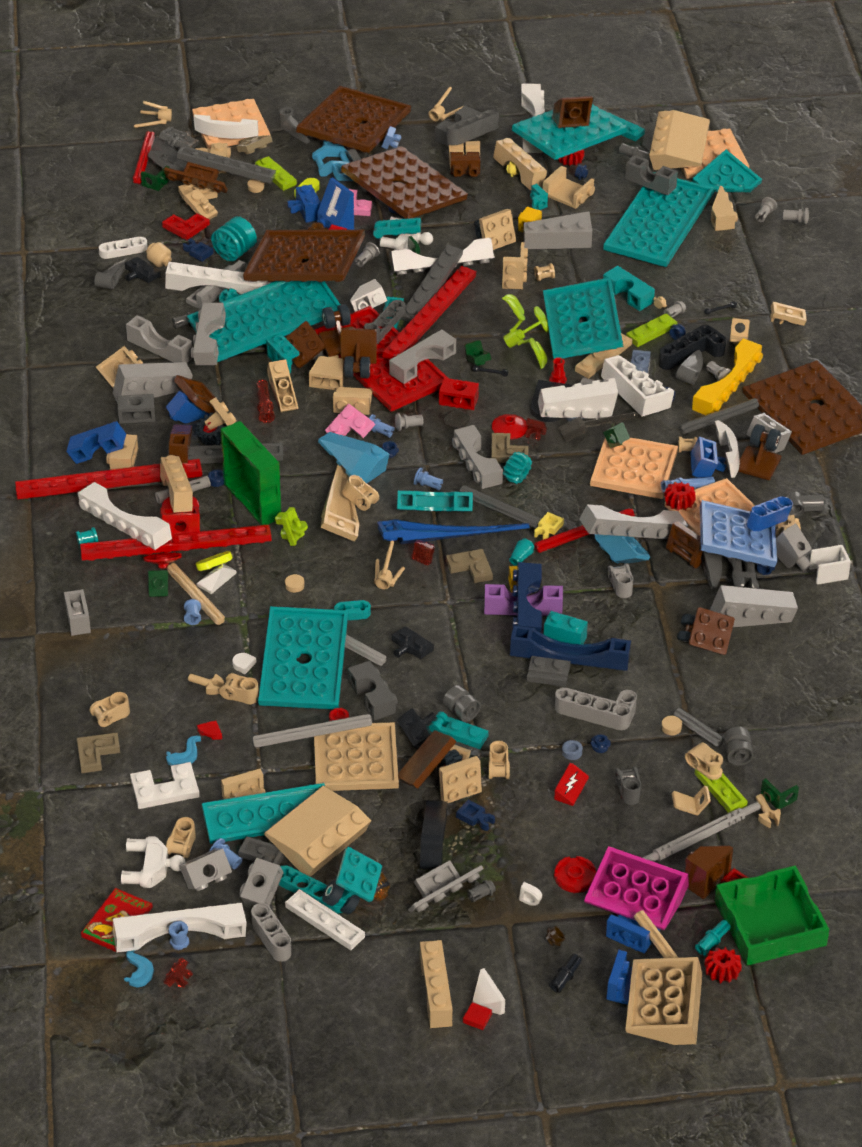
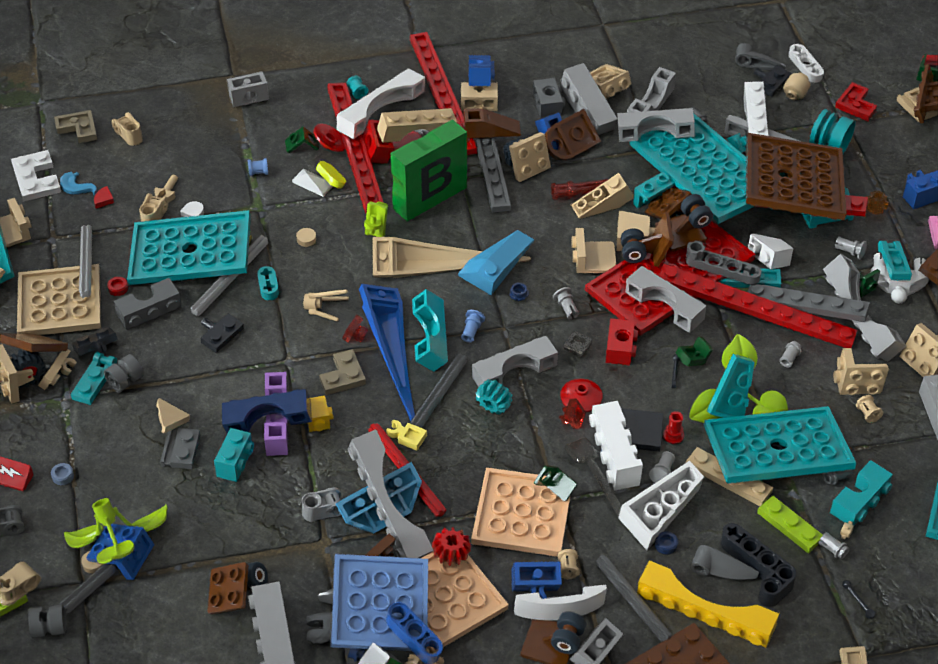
camera: 85 degrees right, 5 degrees up
(195, 593) = (286, 169): tan axle -> none
(199, 251) = (813, 113): dark blue plate -> none
(200, 204) = (892, 107): tan plate -> none
(337, 206) = (904, 210): blue slope -> none
(350, 419) = (547, 253): bright pink plate -> none
(358, 492) = (434, 272): tan piece -> none
(381, 427) = (555, 276): medium blue pin -> none
(482, 305) = (792, 350): none -> light grey pin
(498, 760) = (43, 409): tan piece -> none
(502, 449) = (529, 387): dark tan plate -> none
(514, 673) = (170, 416): none -> tan tile
(522, 550) = (362, 412): teal cone -> none
(534, 324) = (732, 392): none -> teal wing
(596, 709) = (117, 482): light grey beam -> none
(600, 743) = (66, 500): dark blue plate -> none
(606, 654) = (197, 483): dark blue arch -> none
(641, 360) = (711, 510): sand blue brick -> none
(649, 727) = (106, 515): none -> lime plant
(663, 702) = (131, 563): none -> blue bracket
(677, 331) = (789, 550): dark blue plate -> none
(695, 482) = (487, 556): medium blue pin -> none
(719, 372) = (719, 594): light grey pin -> none
(735, 336) = (798, 618): tan bracket -> none

